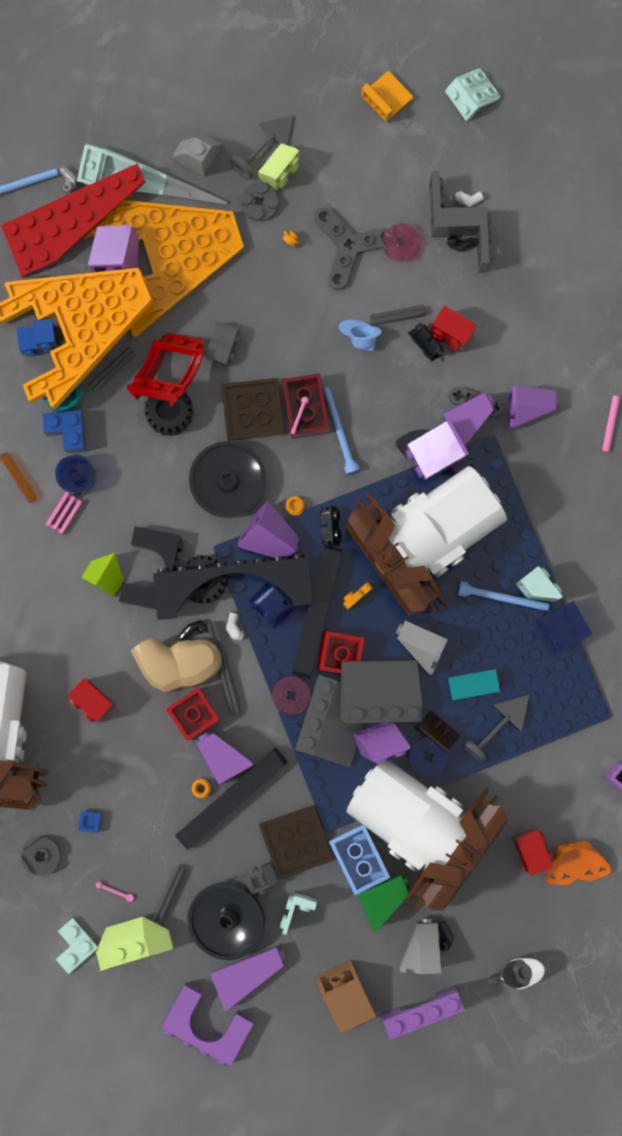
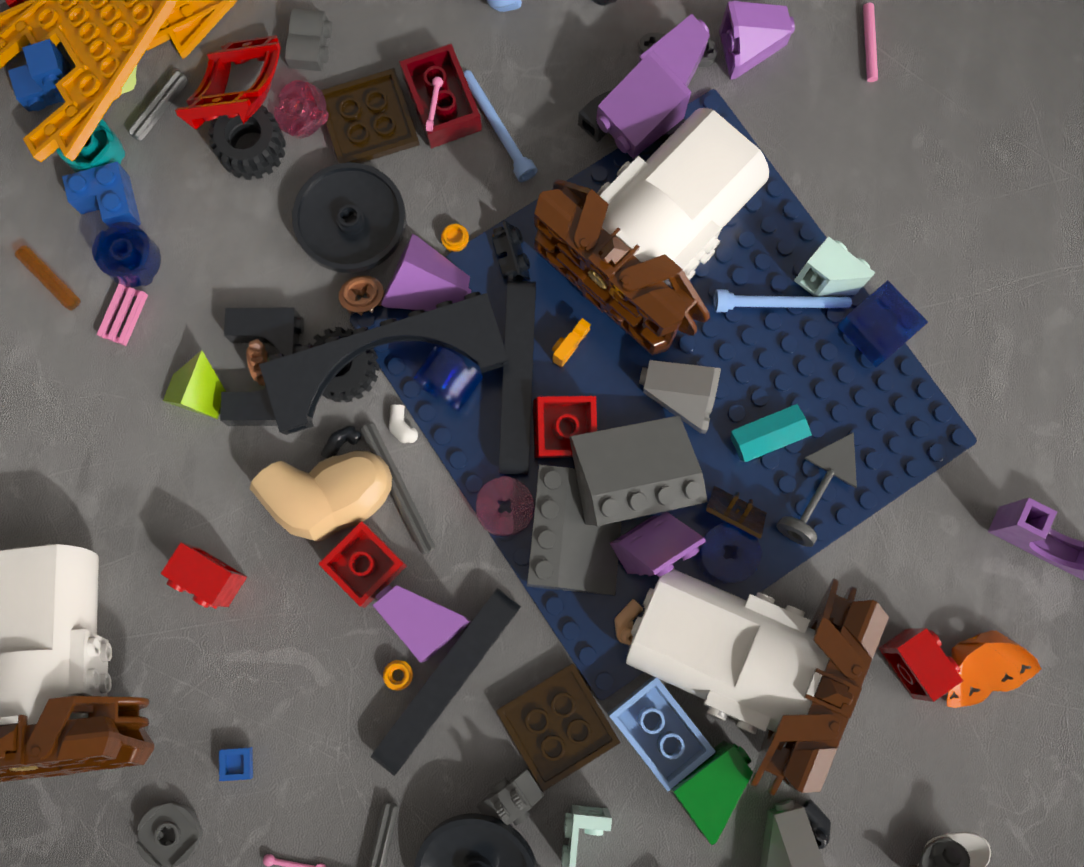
camera: 10 degrees left, 5 degrees down
(149, 566) = (256, 355): none -> nougat gear
(217, 399) = (313, 113): none -> clear pink plate
(224, 526) = (358, 286): none -> nougat gear
(352, 784) = (624, 622): none -> light nougat arm

